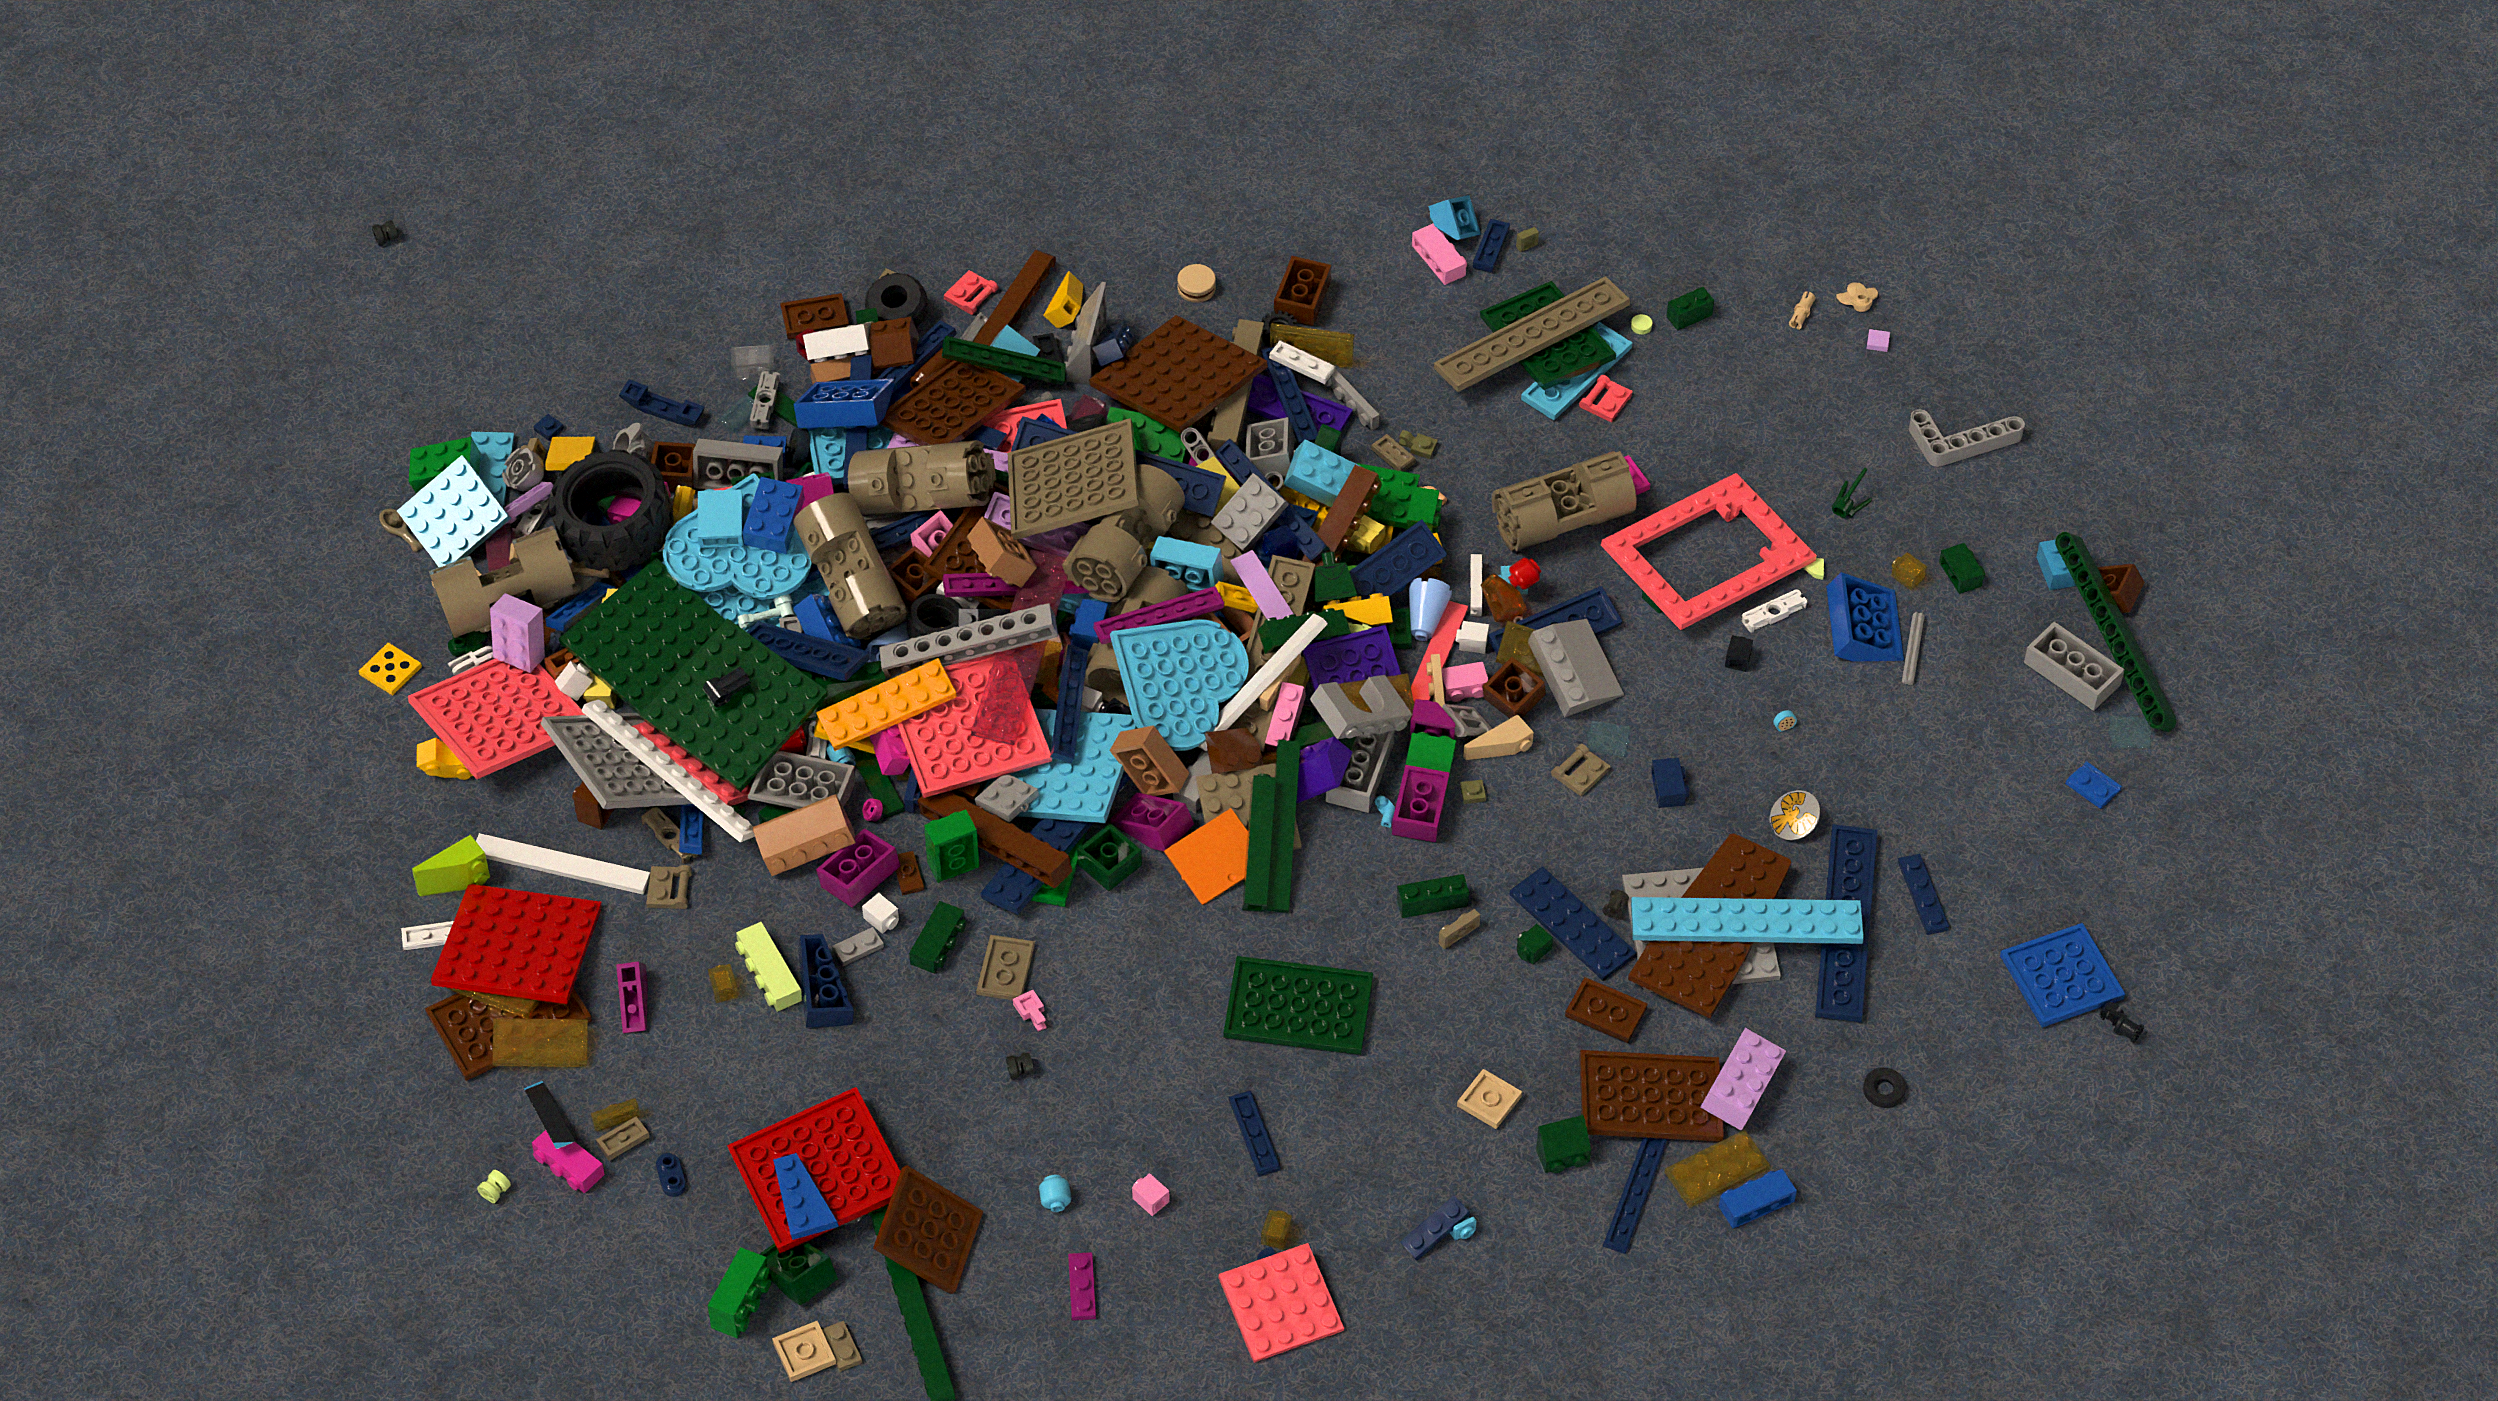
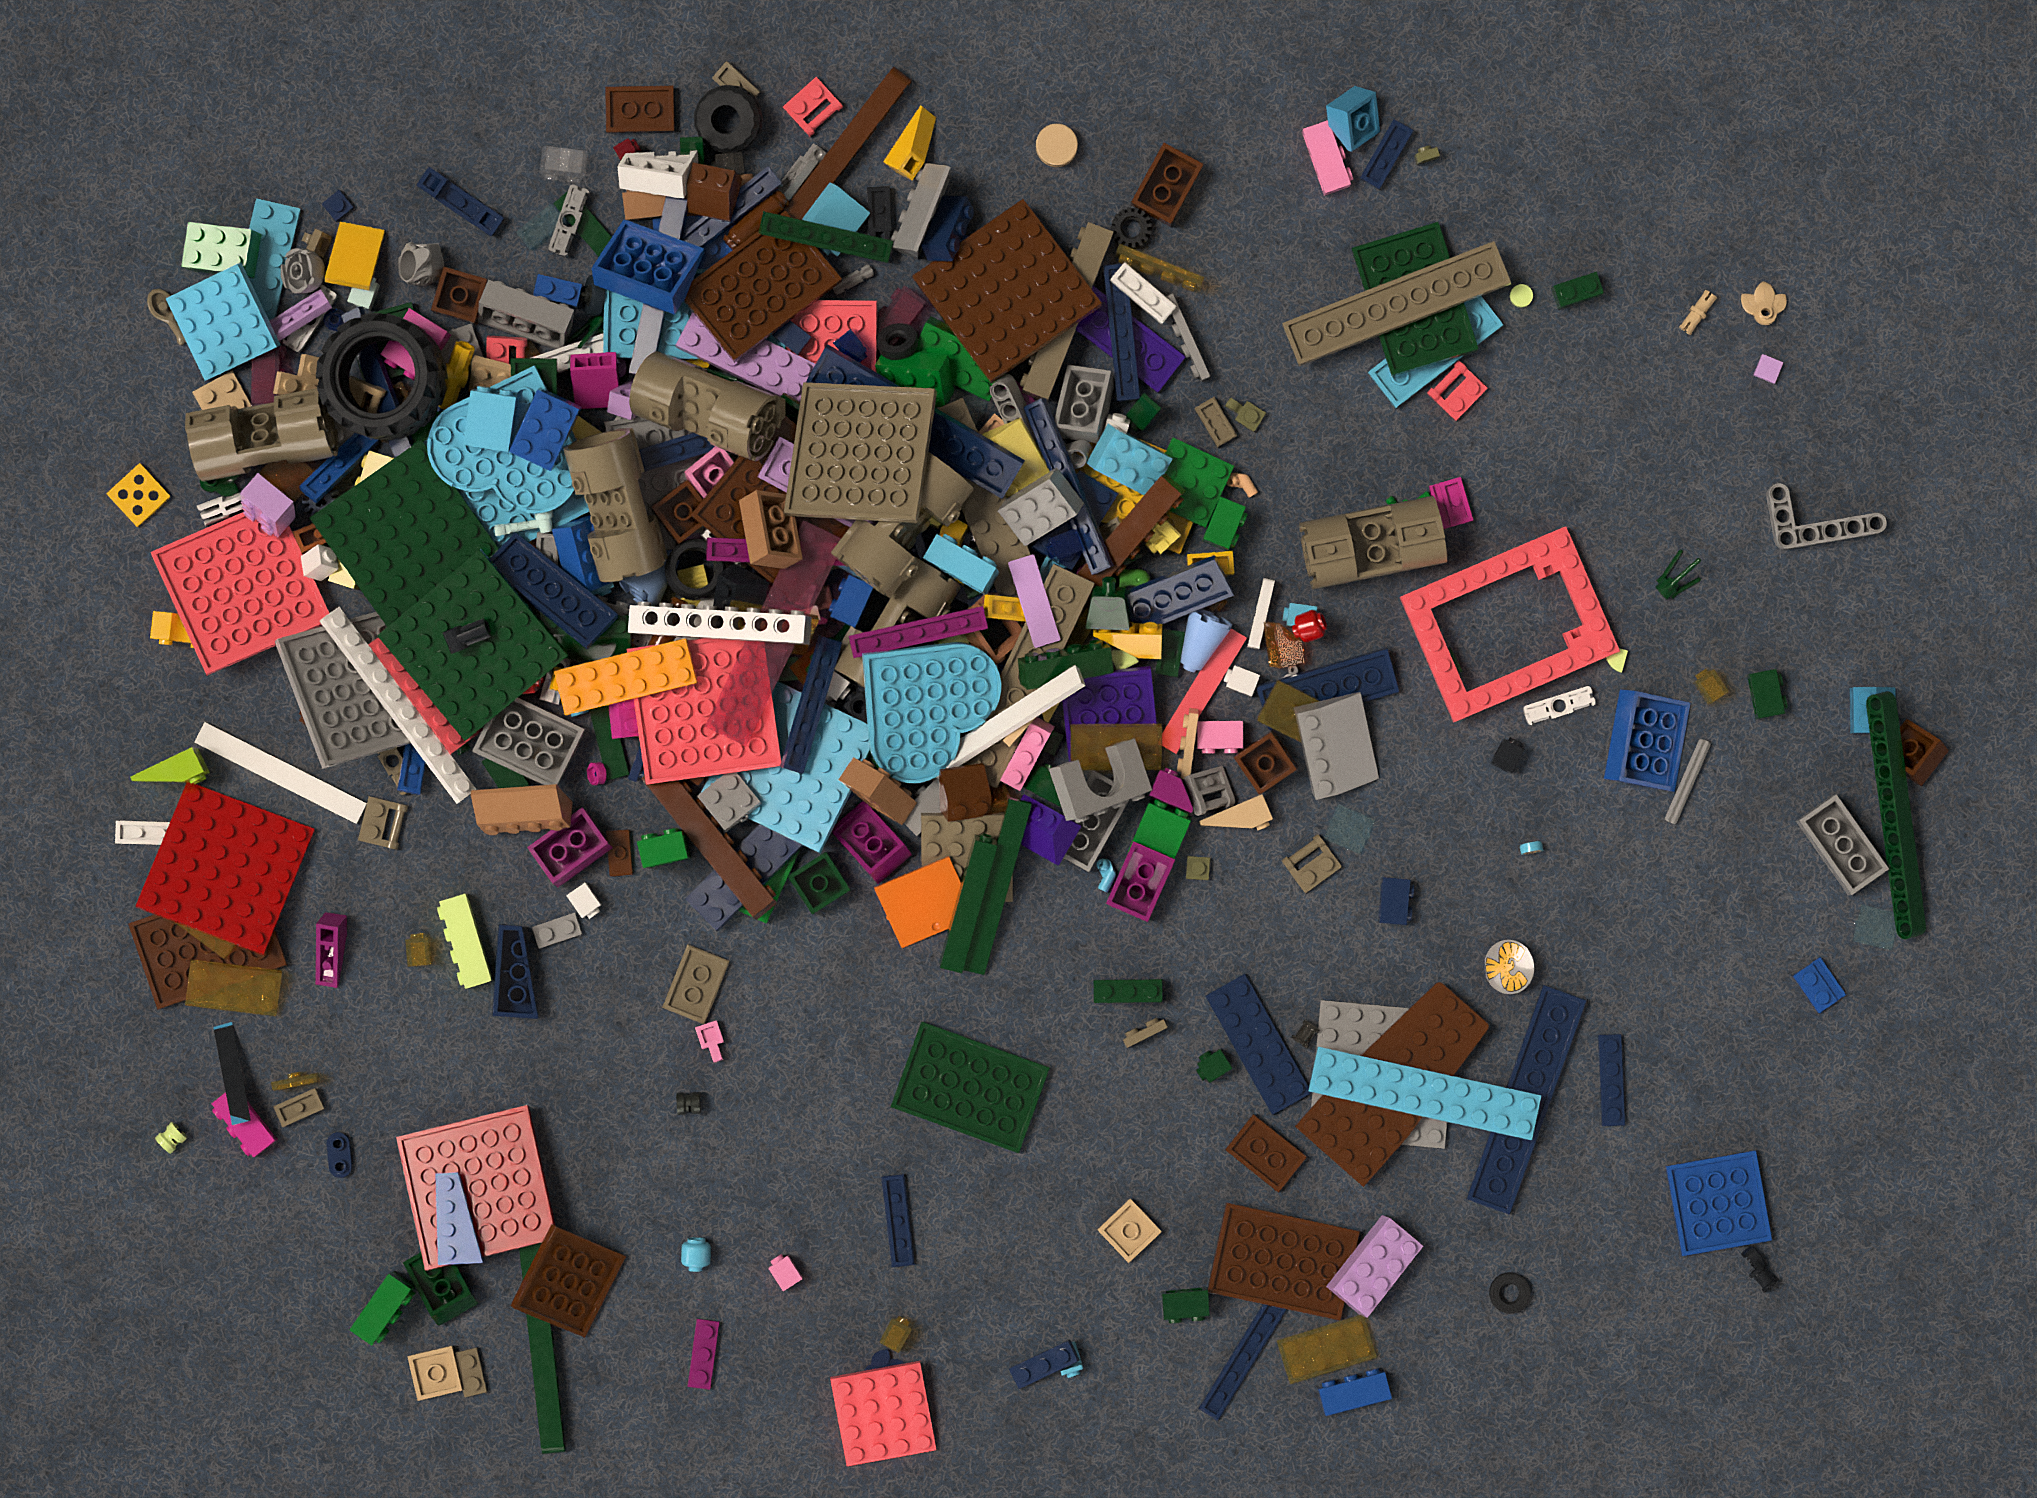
camera: 10 degrees right, 35 degrees up
(937, 937) = (635, 940): dark green brick -> none

